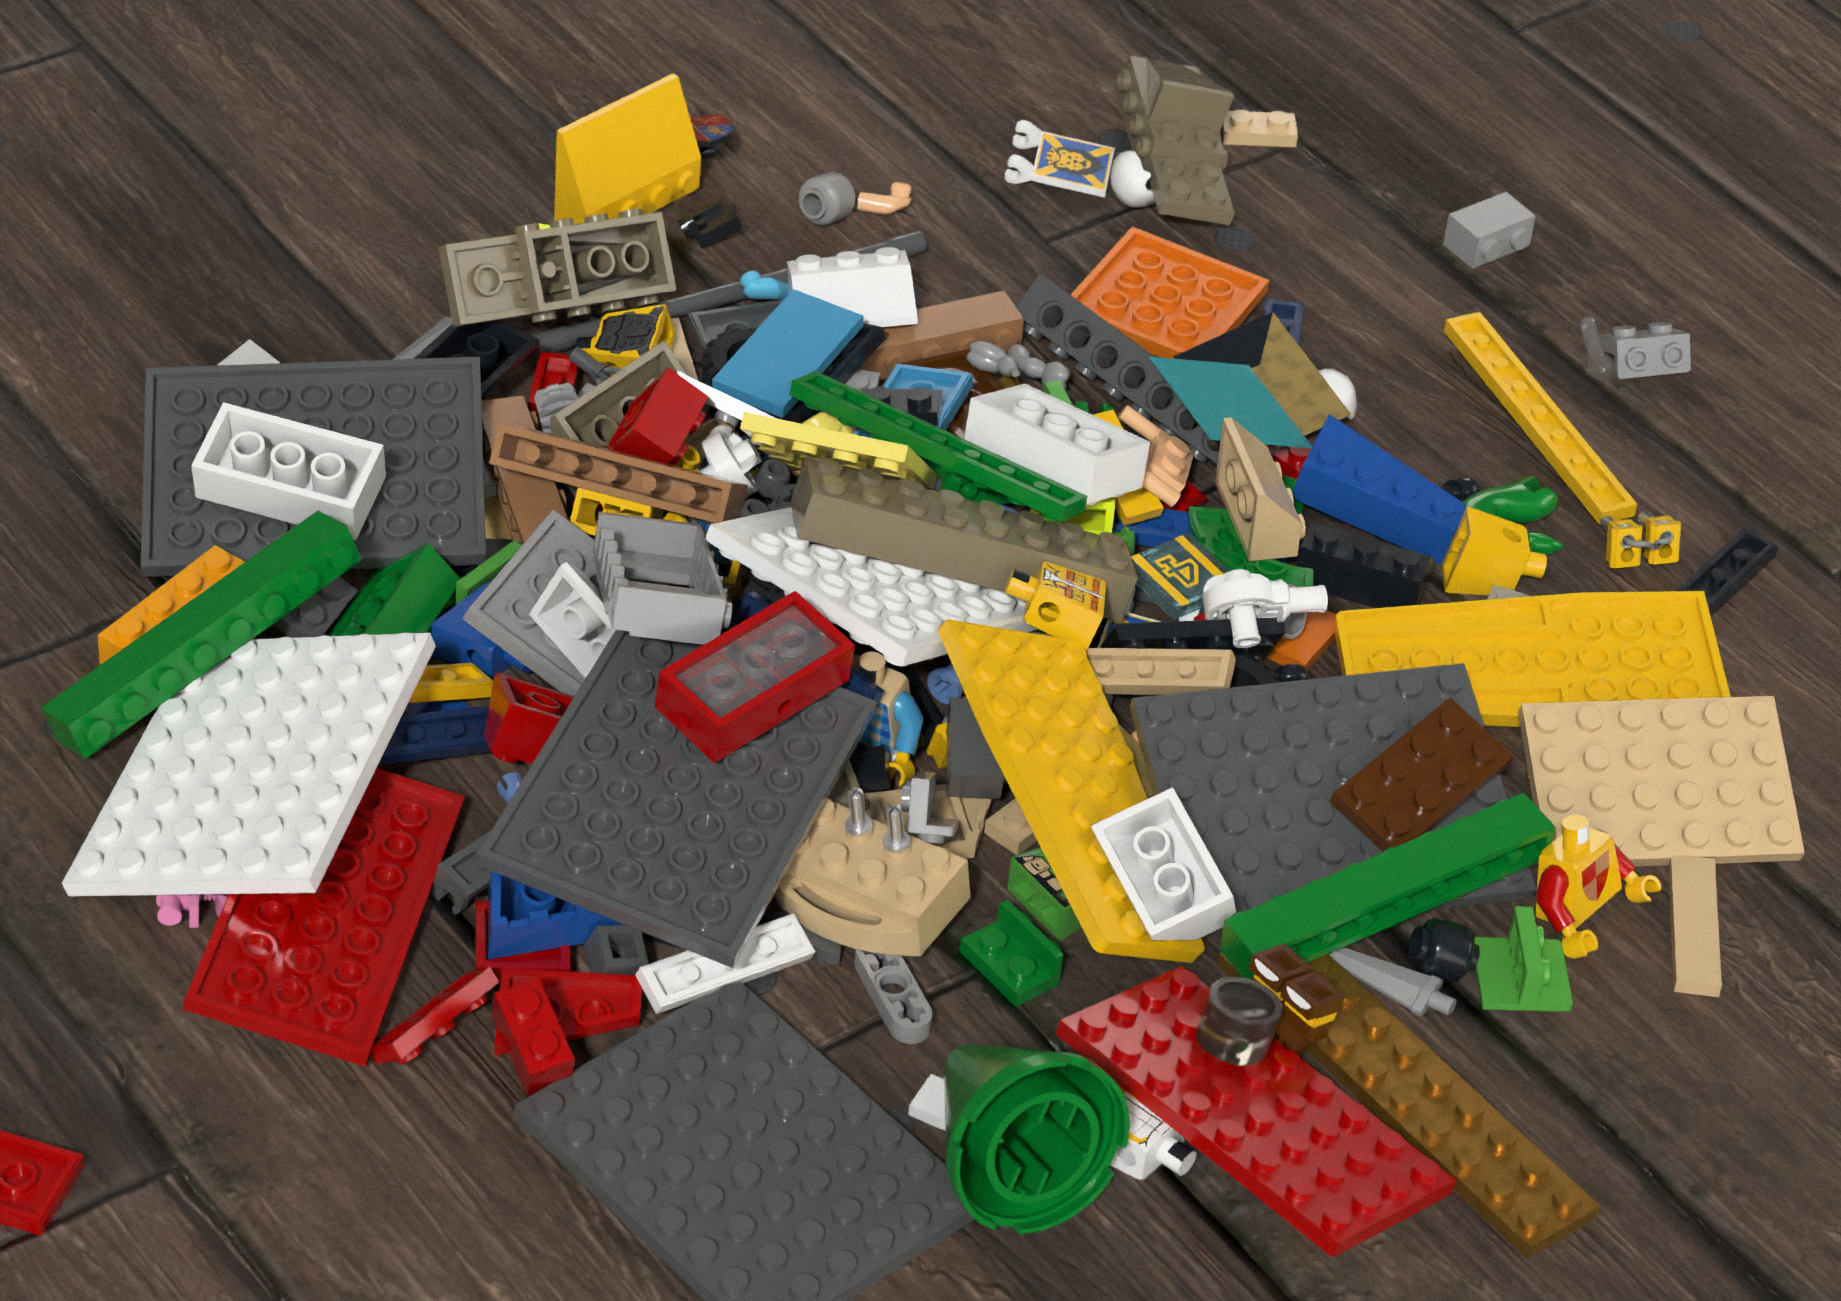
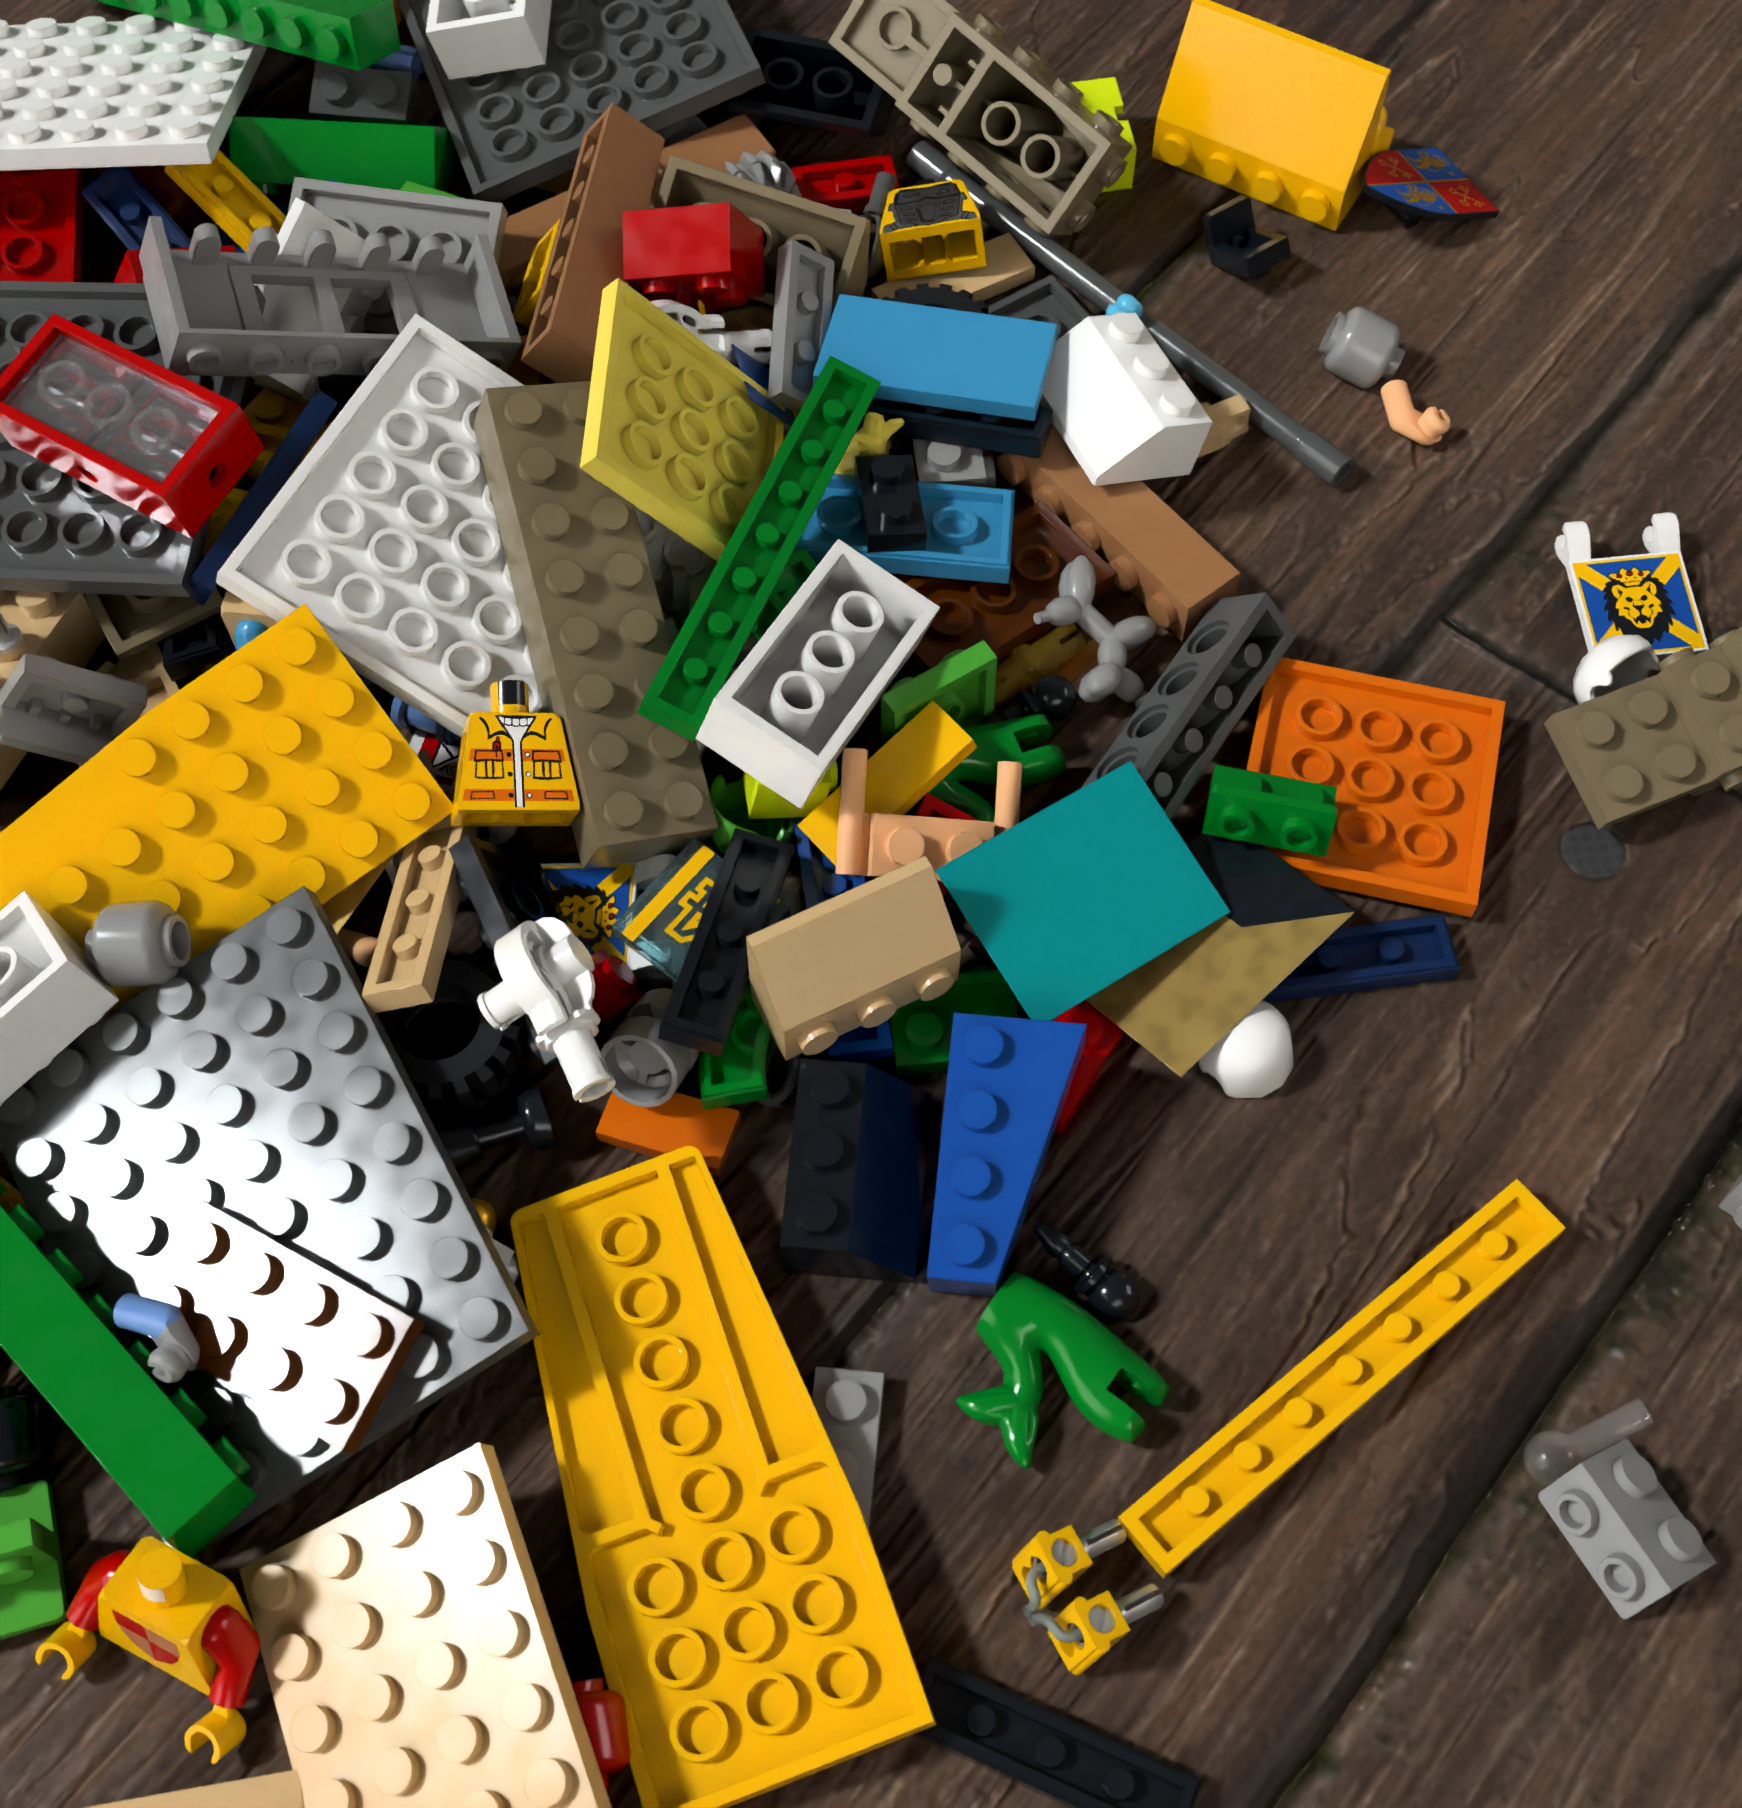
camera: 80 degrees right, 20 degrees up
(1140, 780) = (138, 943): none -> light grey head
(1187, 326) = (1270, 810): none -> green bracket
(1214, 548) = (717, 962): none -> black tile
(1425, 809) = (169, 1330): none -> arm
(1487, 554) = (911, 1322): yellow torso -> none

